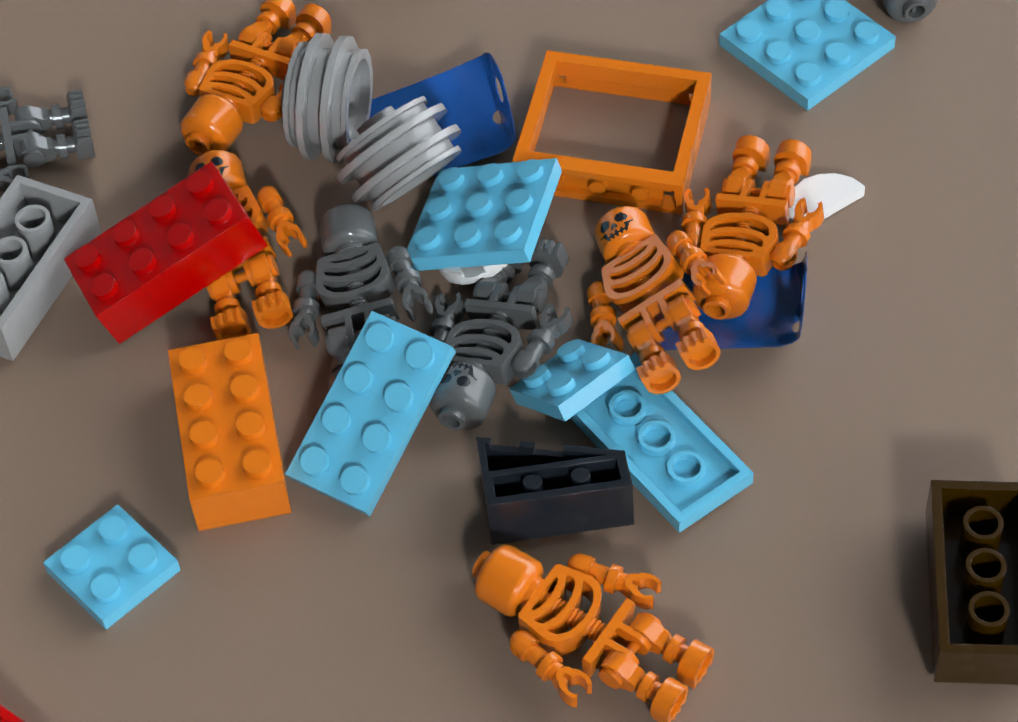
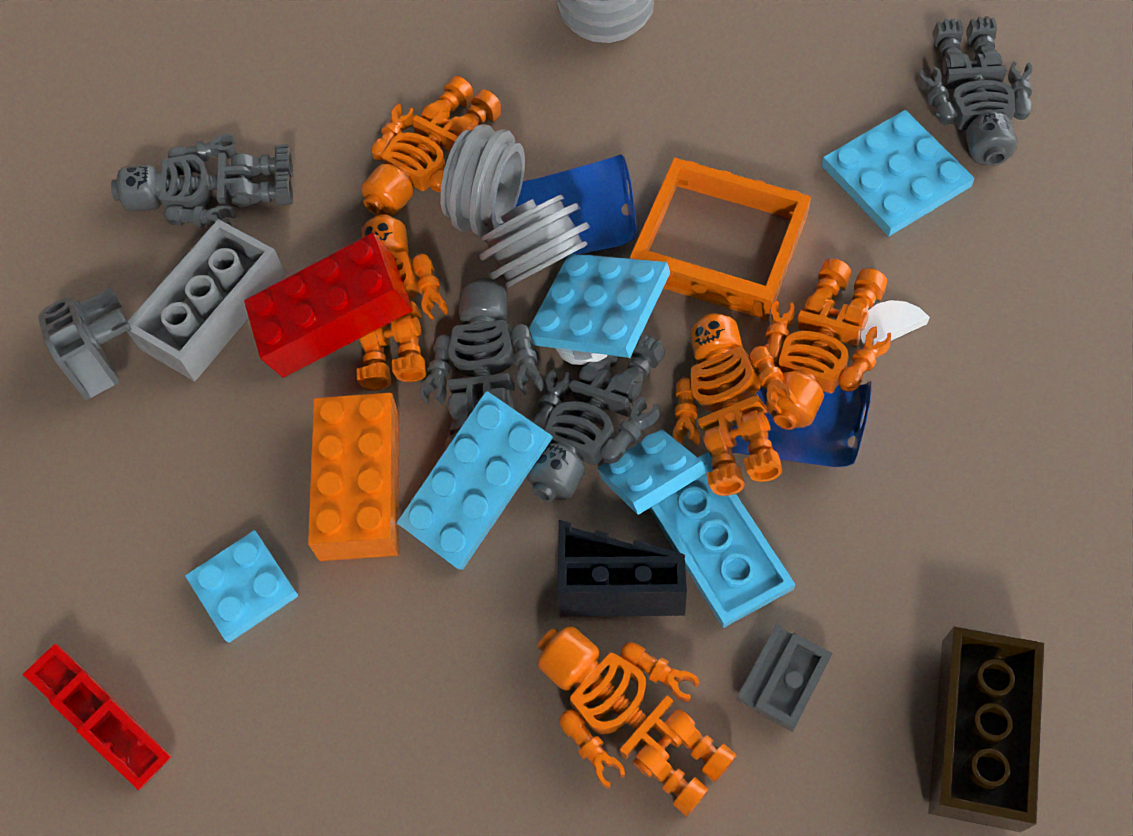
camera: 10 degrees right, 10 degrees up
(755, 569) = (784, 677): none -> dark grey plate

